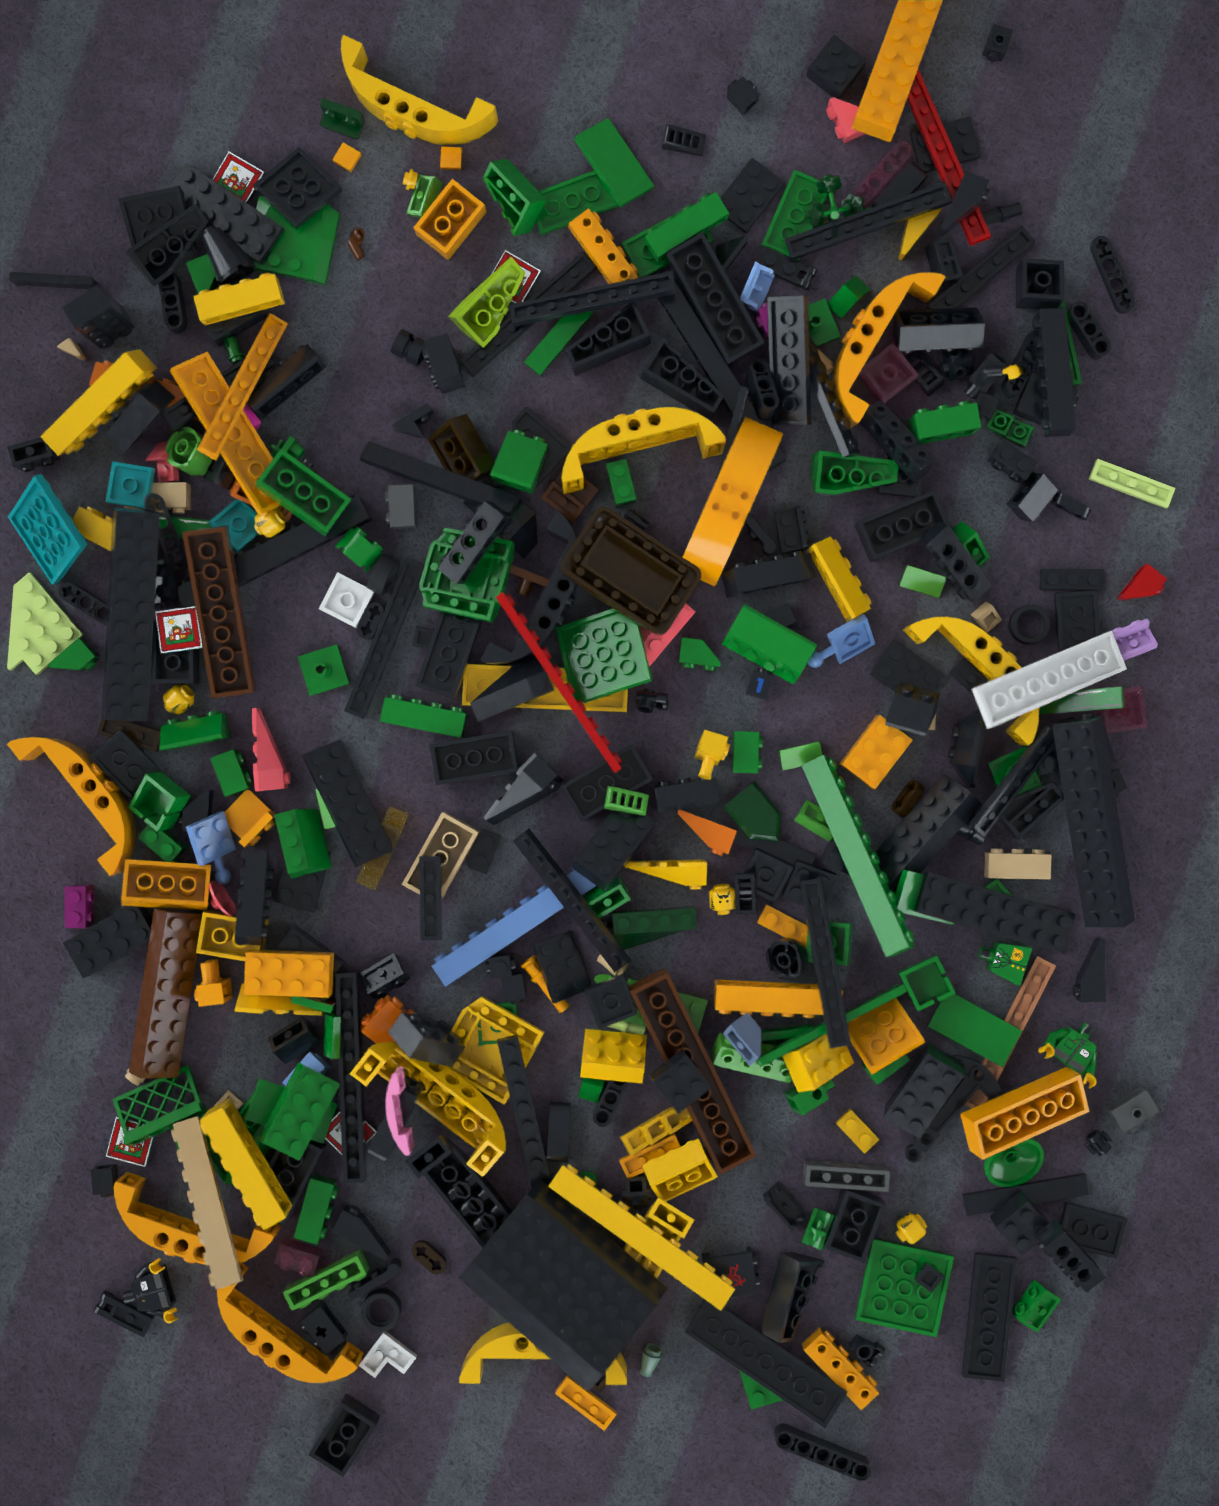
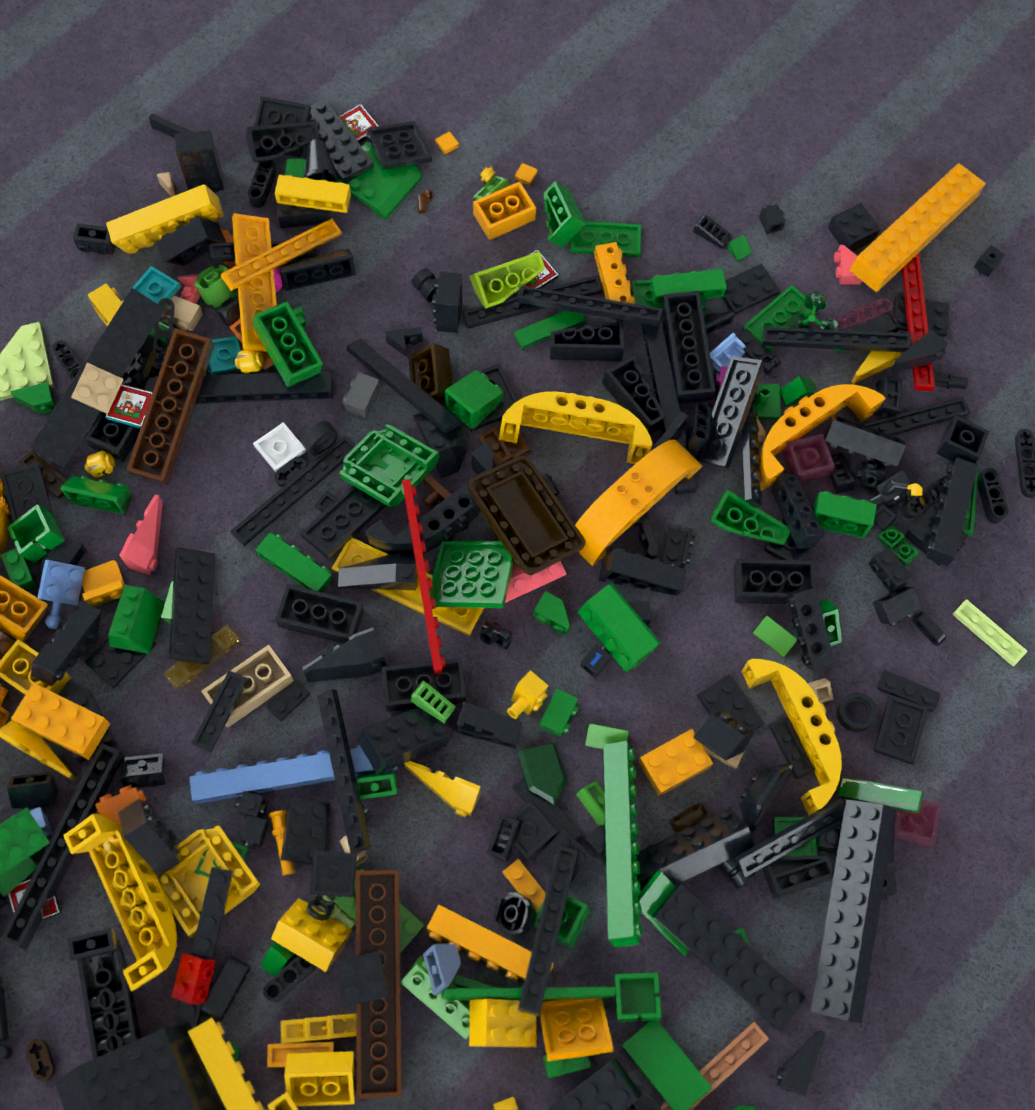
camera: 20 degrees right, 20 degrees down
(47, 529) = (71, 291): teal plate -> none
(138, 631) = (97, 388): none -> tan plate
(221, 899) = (40, 634): coral dish -> none
(231, 772) = (109, 539): green brick -> none
(233, 350) = (290, 231): green pin -> none
(320, 1003) = (67, 759): green tile -> none
(323, 670) = (231, 494): green tile -> none
(332, 1031) = (67, 798): green slope -> none
(341, 119) = (456, 115): dark green bracket -> none
(359, 549) = (310, 409): green brick -> none
(383, 1141) = (82, 900): black slope -> none
(402, 1135) = (77, 913): bright pink slope -> none
(409, 112) = (512, 131): yellow slope -> none
(496, 520) = (403, 447): black brick -> none
(528, 1140) = (193, 979): none -> red bracket
(614, 162) = (650, 224): green tile -> none
(617, 1026) = (318, 900): none -> black piece
(621, 483) = (549, 451): green brick -> none
(636, 1193) = (268, 1084): black brick -> none
(647, 925) = (401, 829): dark green wedge -> none
(713, 834) = (498, 772): orange slope -> none
(721, 148) = (739, 248): none -> green slope
(722, 898) = (480, 834): yellow head -> none
(806, 1101) = (471, 1059): green torso -> none
(839, 579) = (702, 602): yellow slope -> none
(845, 642) = (689, 655): medium blue plate -> none
(1006, 960) = (722, 1012): green torso -> none
(1017, 864) = (767, 924): tan brick -> none
(1049, 679) = (857, 757): white plate -> none
(1134, 639) = (945, 764): lavender bracket -> none
(1143, 584) = (972, 721): red slope -> none

